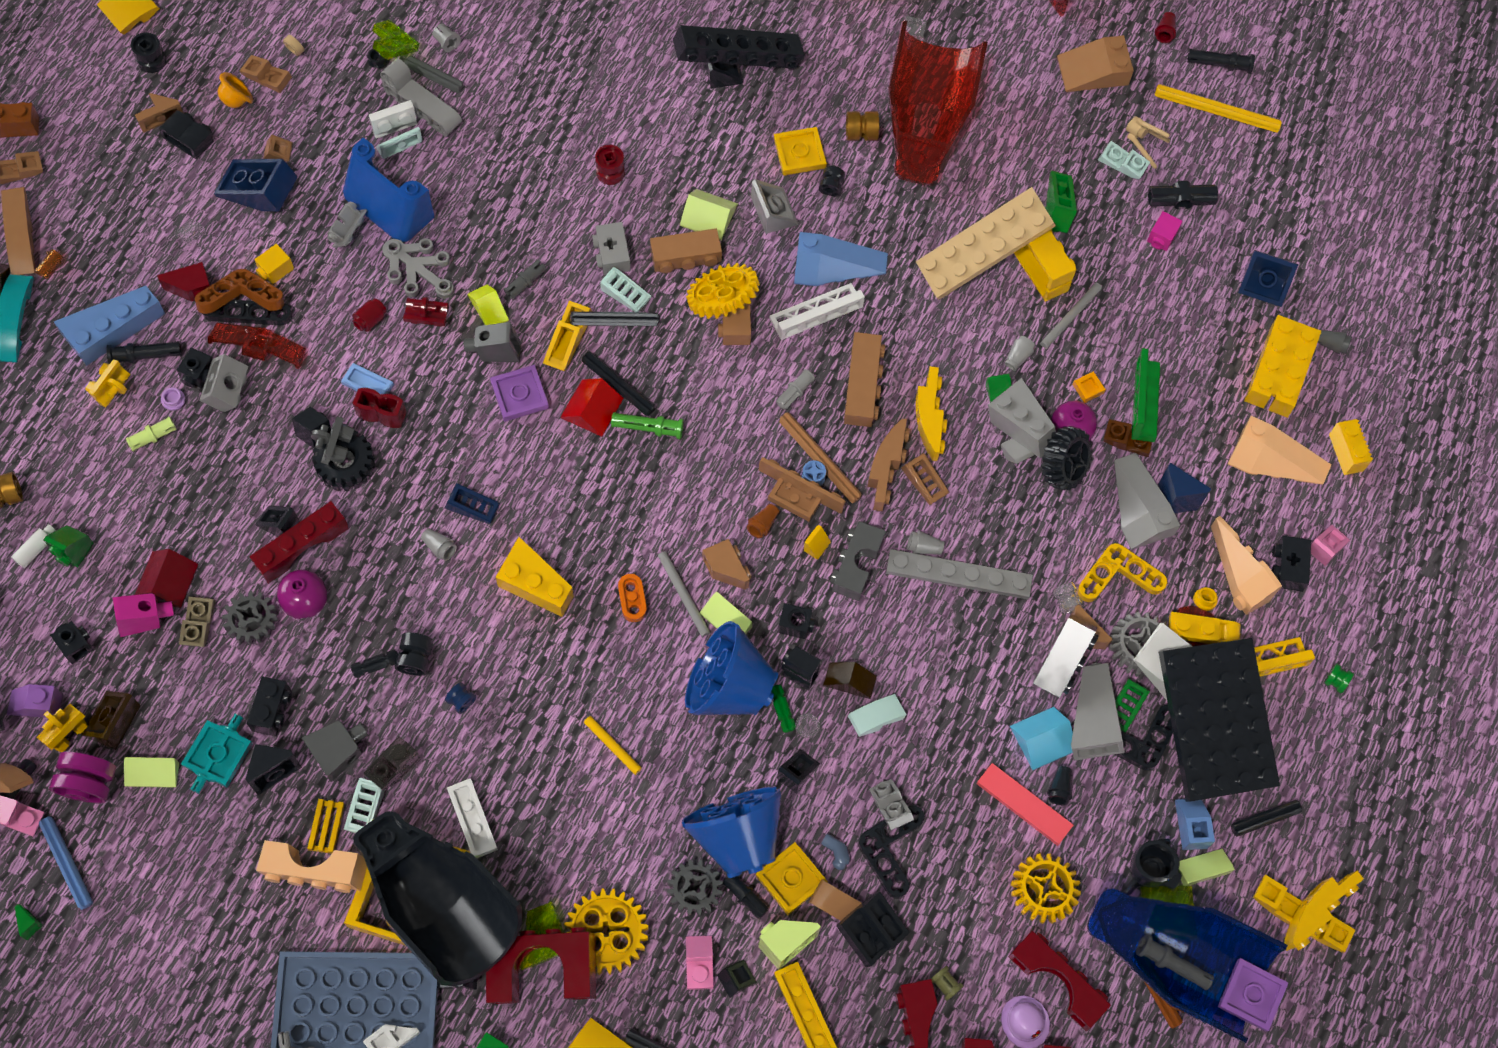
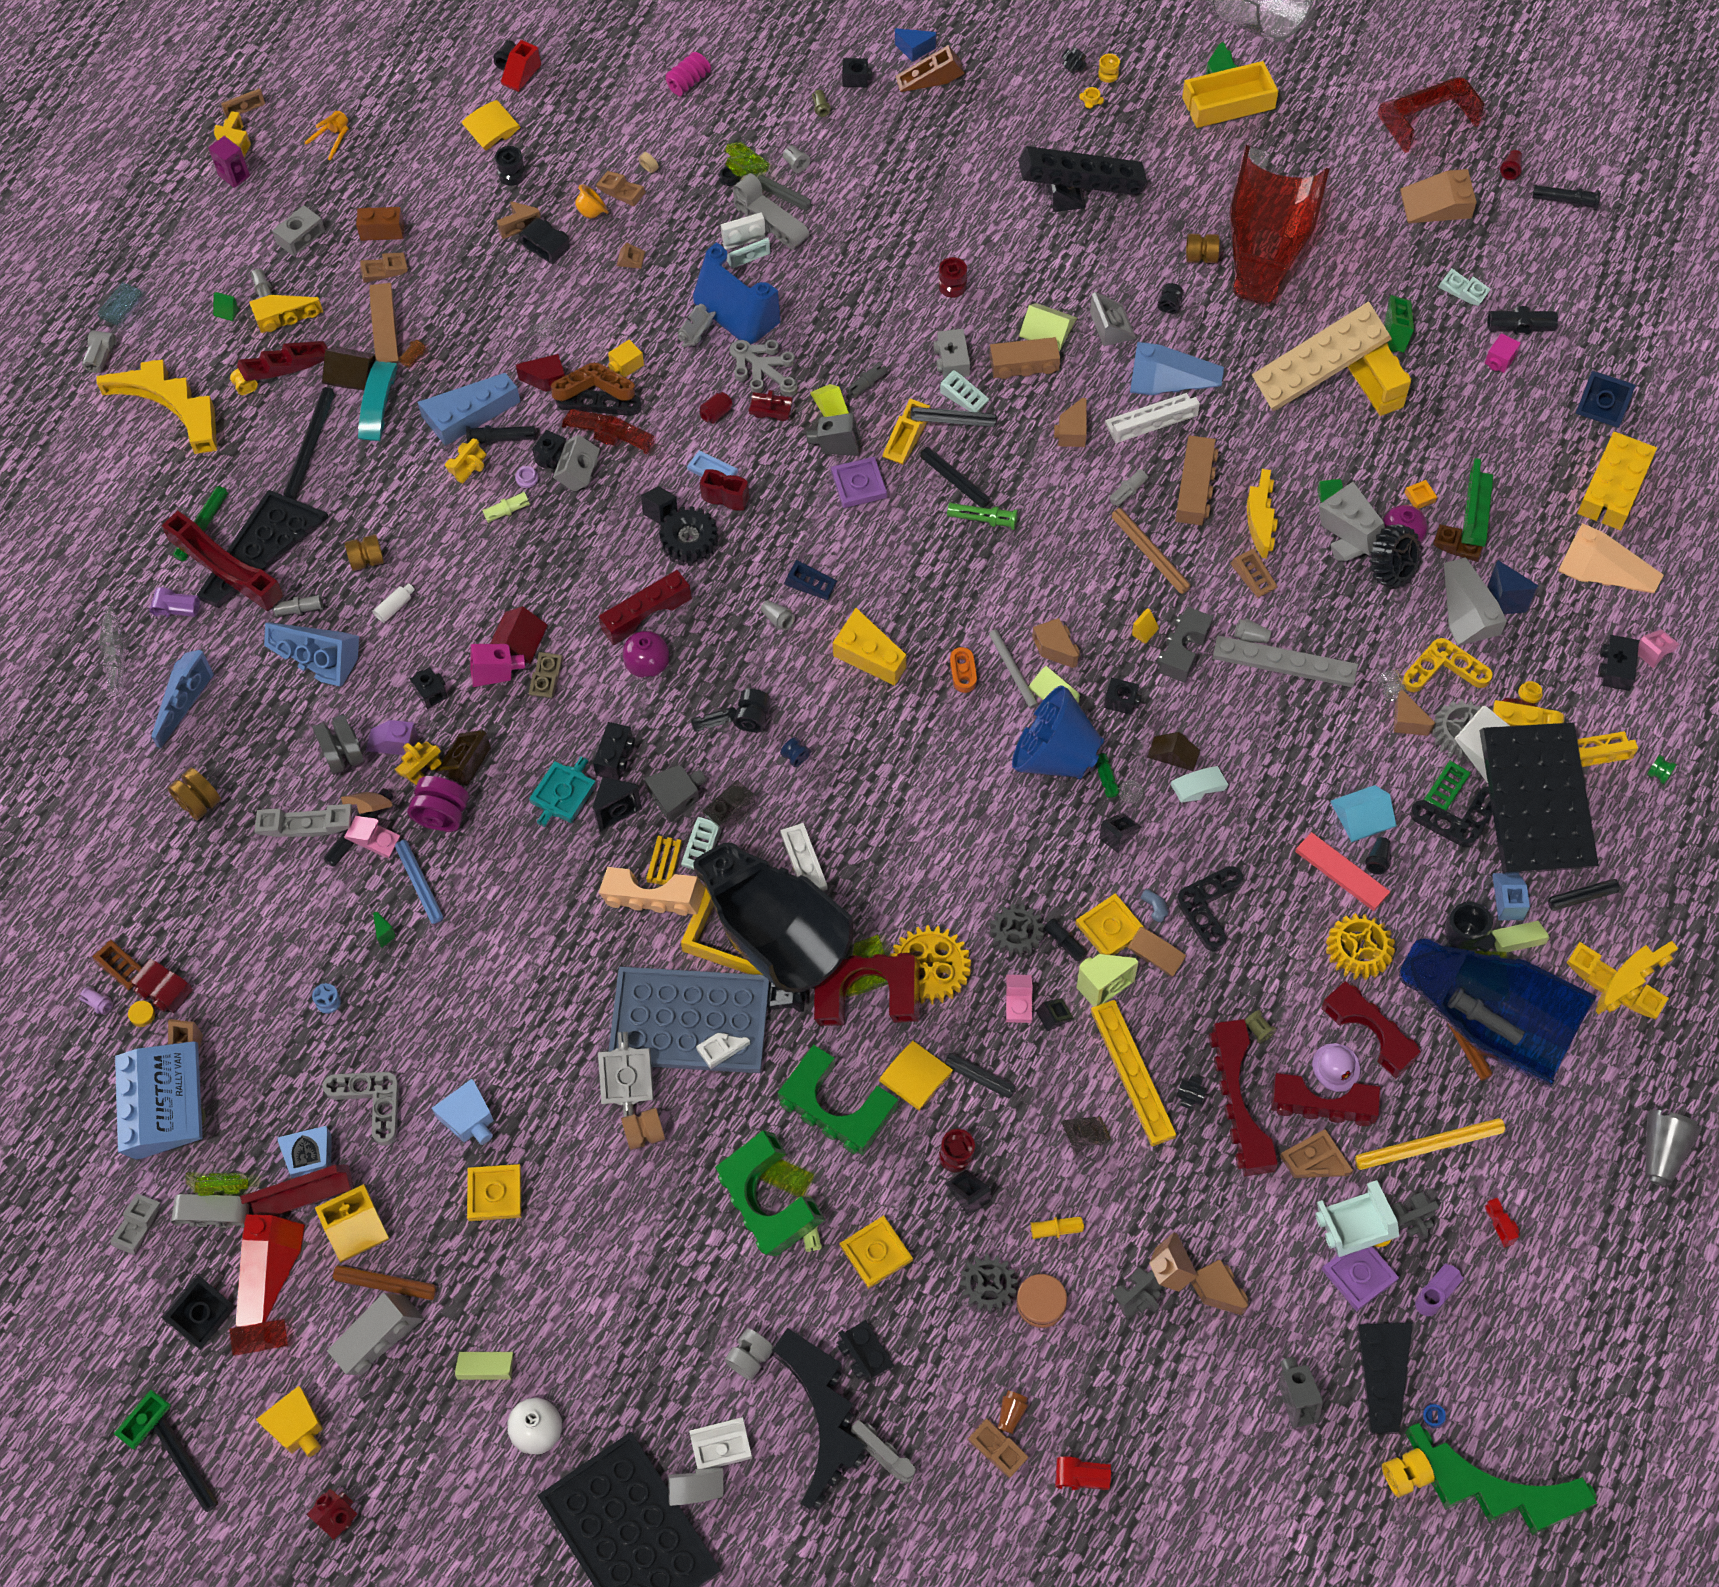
camera: 10 degrees right, 5 degrees down
(68, 545) = (428, 602): green slope -> none
(150, 772) = (500, 805): yellowish green slope -> none
(245, 608) = (597, 675): dark grey gear -> none
(257, 183) = (611, 286): dark blue slope -> none
(277, 520) = (624, 586): black slope -> none
(332, 451) = (679, 524): dark grey hips -> none
(592, 405) = (930, 496): red slope -> none
(631, 764) = (940, 801): yellow bar -> none
(722, 290) = (1060, 393): yellow gear -> none
(739, 832) = (1062, 878): blue cone -> none
(761, 522) = (1091, 607): dark orange cone -> none
(797, 493) = (1127, 580): medium nougat bracket -> none
(799, 151) = (1139, 270): yellow plate -> none
(801, 667) = (1126, 735): black brick -> none
(814, 469) = (1148, 561): medium blue wheel -> none
(872, 929) = (1188, 974): black slope -> none
(886, 461) = (1216, 555): medium nougat slope -> none
(890, 804) = (1210, 864): light grey slope -> none
(1020, 352) = (1353, 460): light grey cone -> none
(1066, 656) = (1388, 732): brick -> none
(1071, 315) = (1405, 429): light grey bar -> none
(1096, 718) = (1416, 793): light grey slope -> none
(1140, 128) = (1480, 258): tan plant -> none
(1218, 108) = (1561, 241): yellow axle -> none
(1250, 581) = (1574, 673): light nougat wedge -> none
(1253, 994) = (1562, 1050): medium lavender plate -> none
(1335, 341) = (1672, 460): dark grey cone -> none
(1350, 446) = (1683, 557): yellow brick -> none

